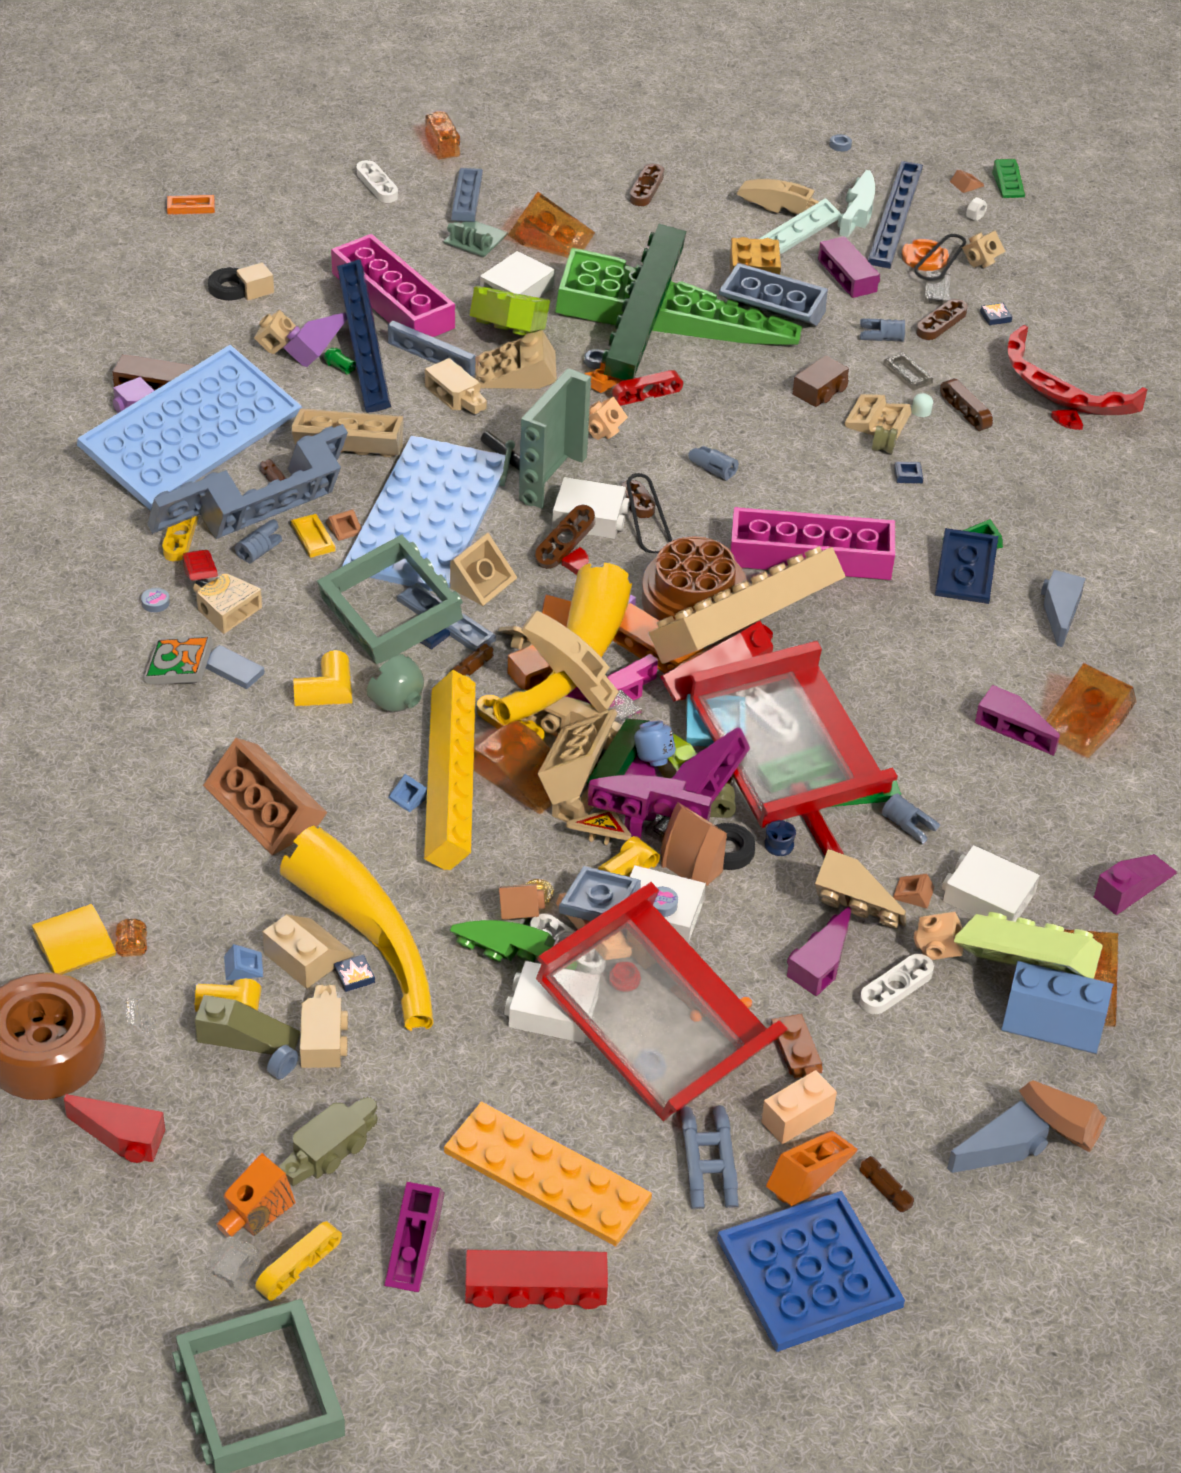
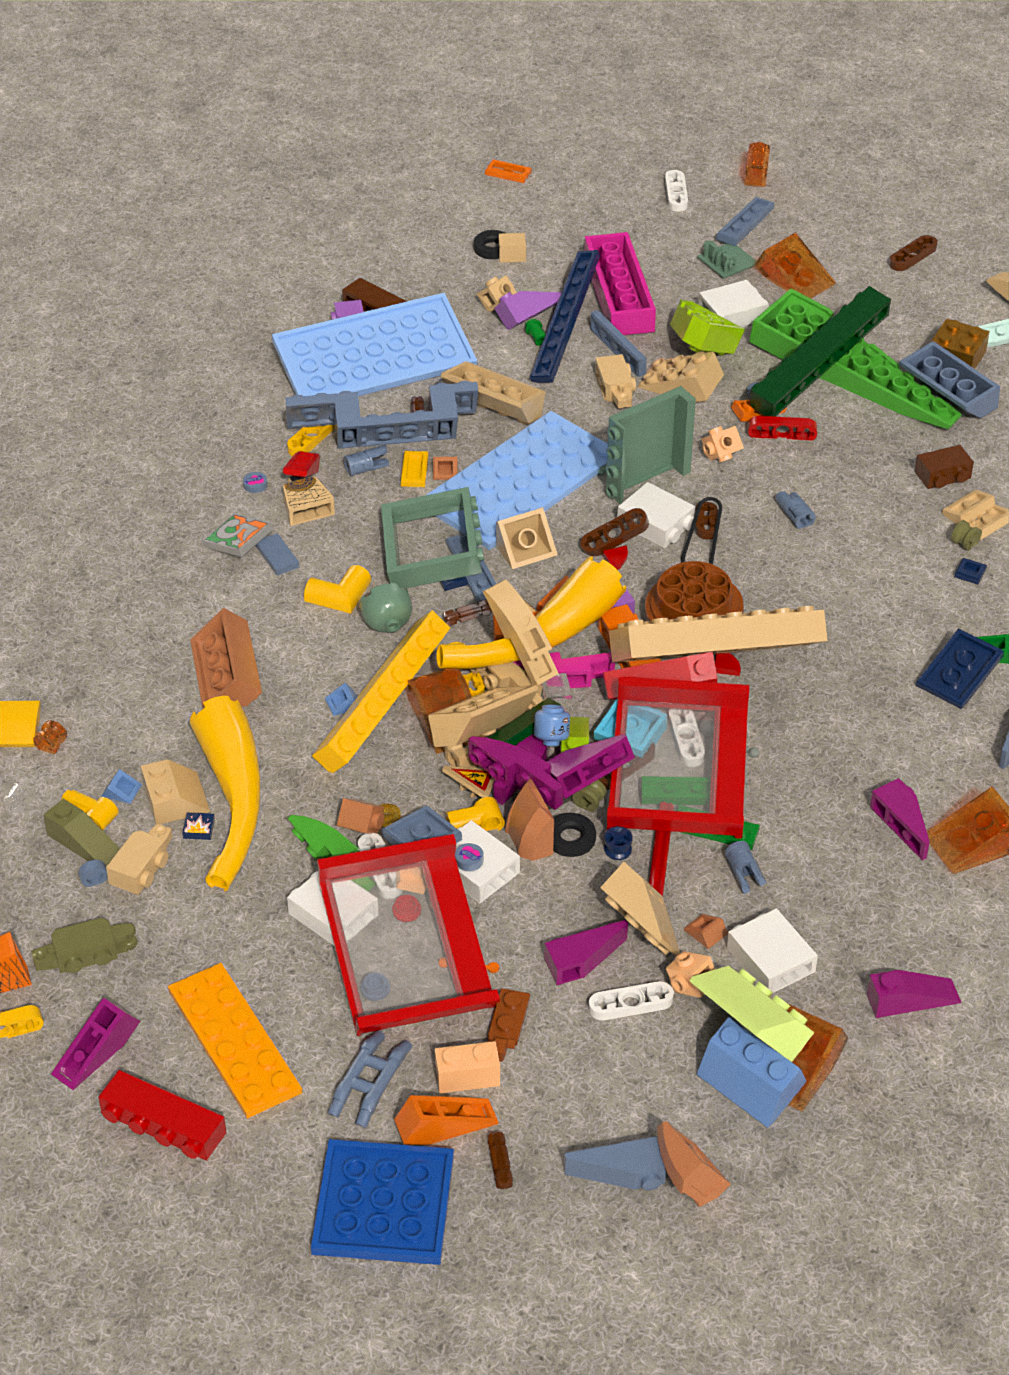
camera: 30 degrees right, 0 degrees up
(772, 537) = (851, 611): dark pink brick -> none

